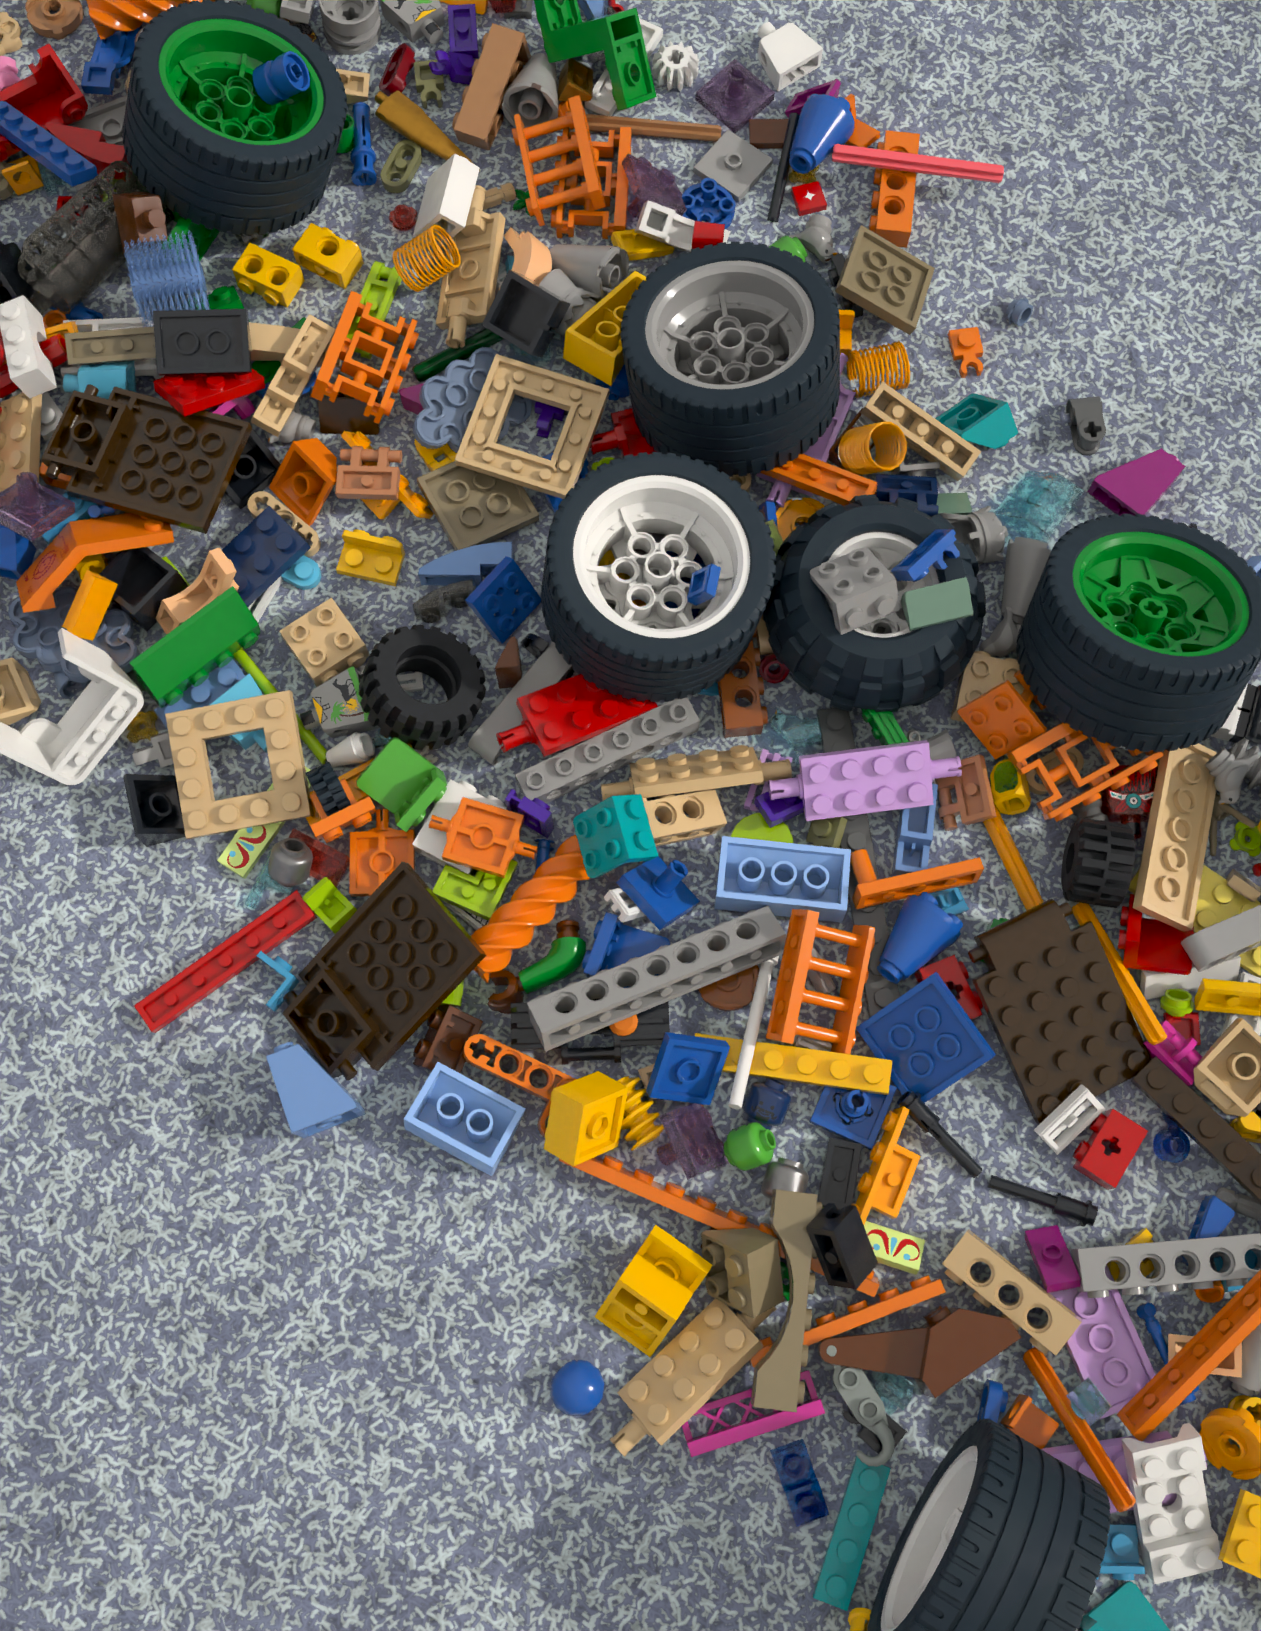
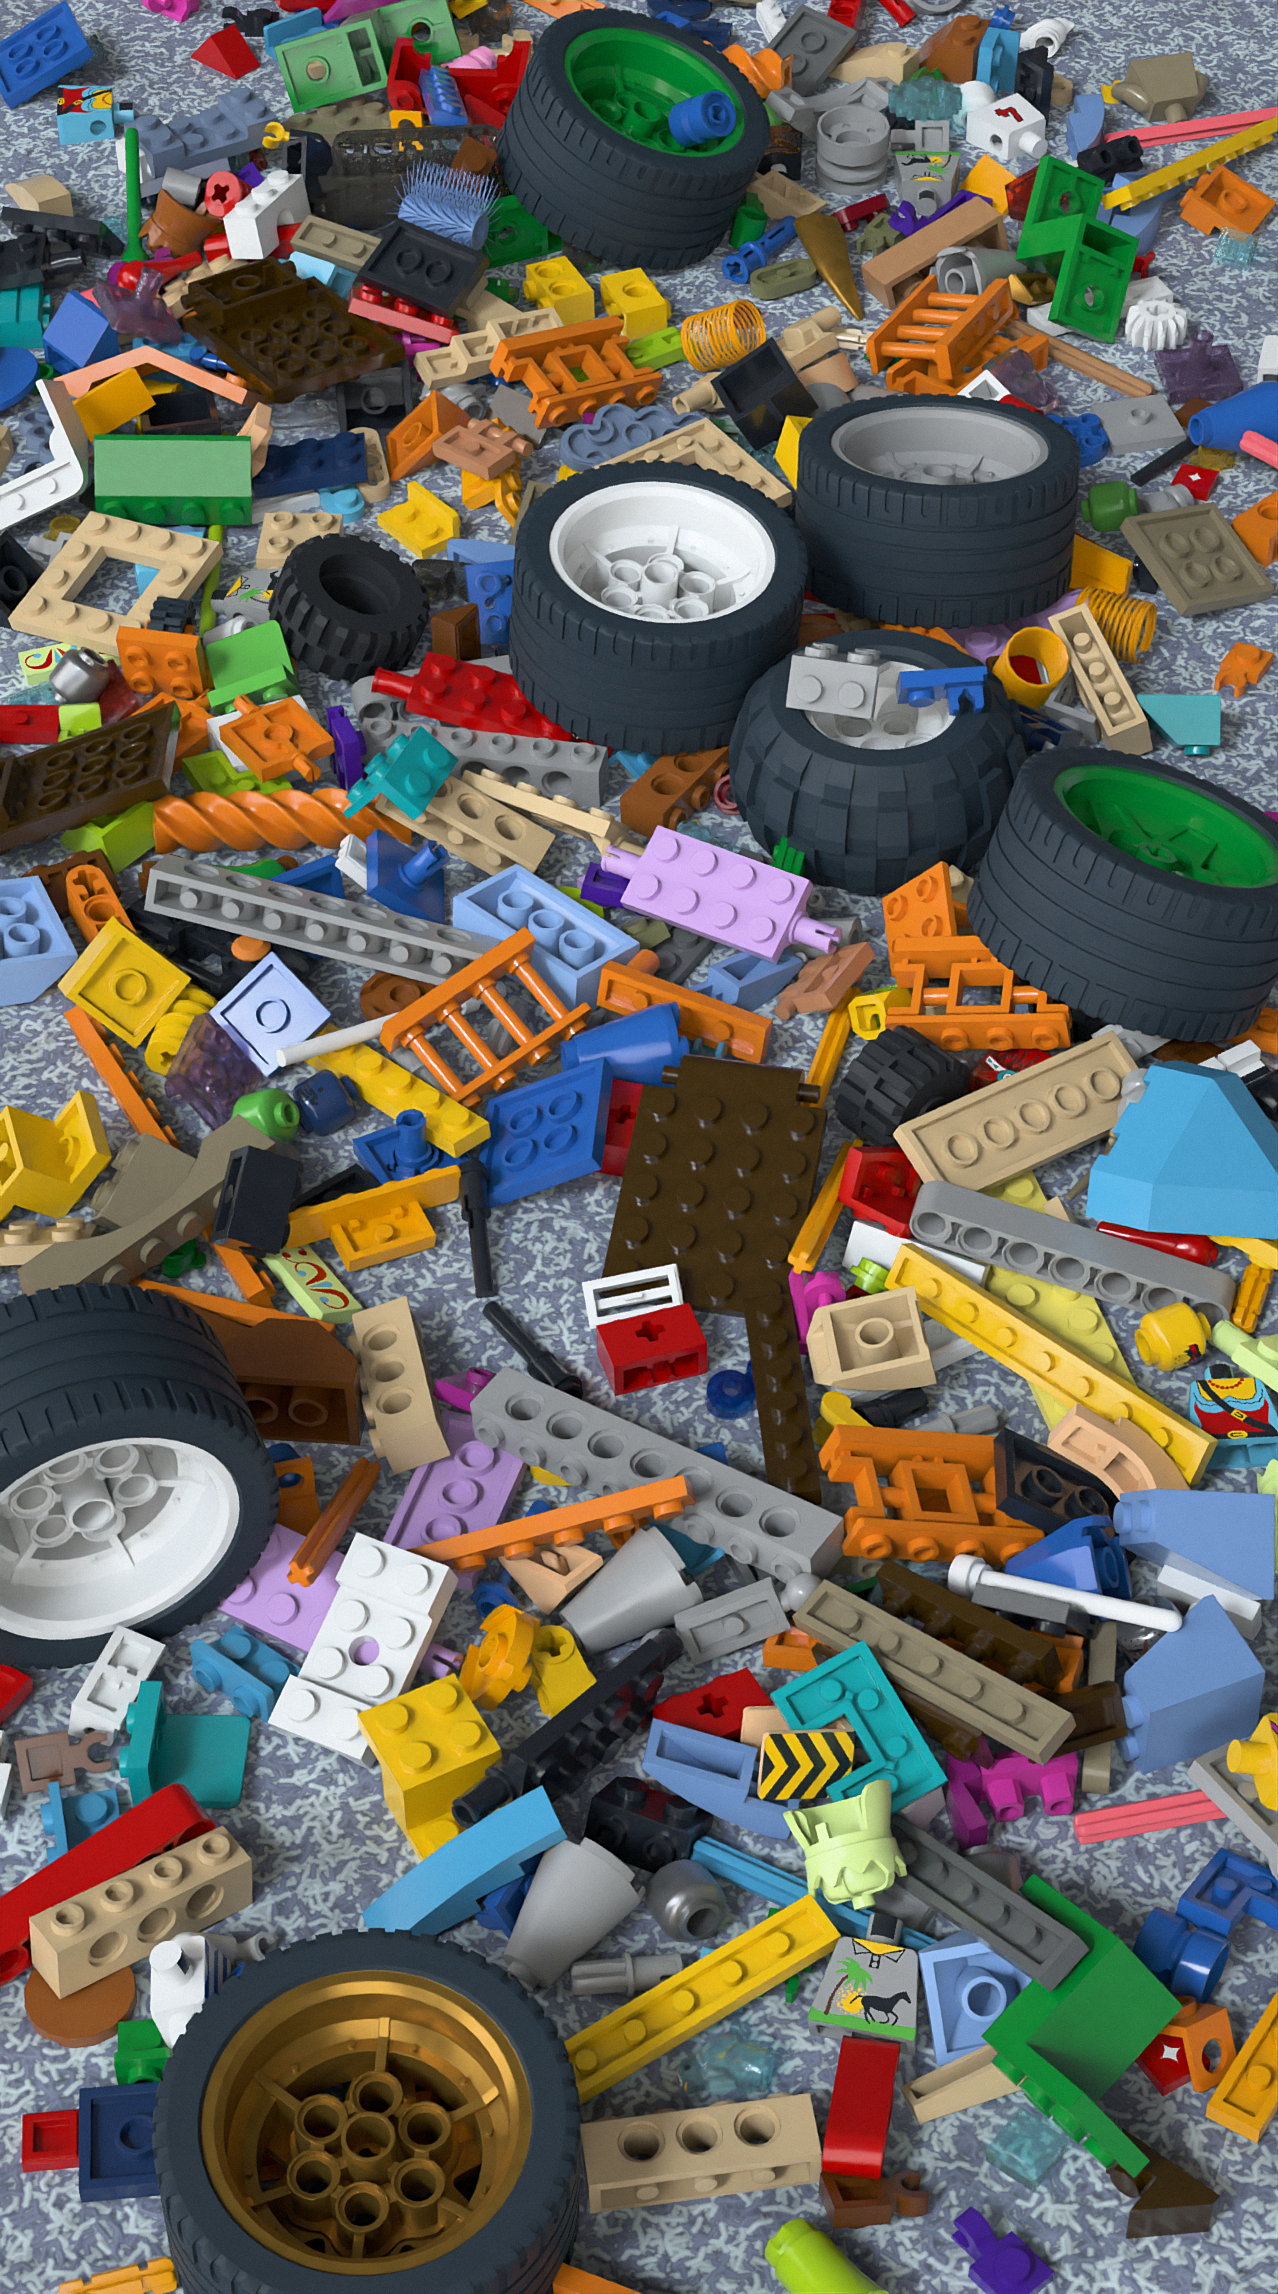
camera: 40 degrees right, 30 degrees down
(448, 197) = (795, 299): white brick -> none
(703, 584) = (691, 605): blue tile -> none
(937, 603) = (915, 729): sand green slope -> none
(1088, 1402) = (369, 1504): clear light blue bracket -> none

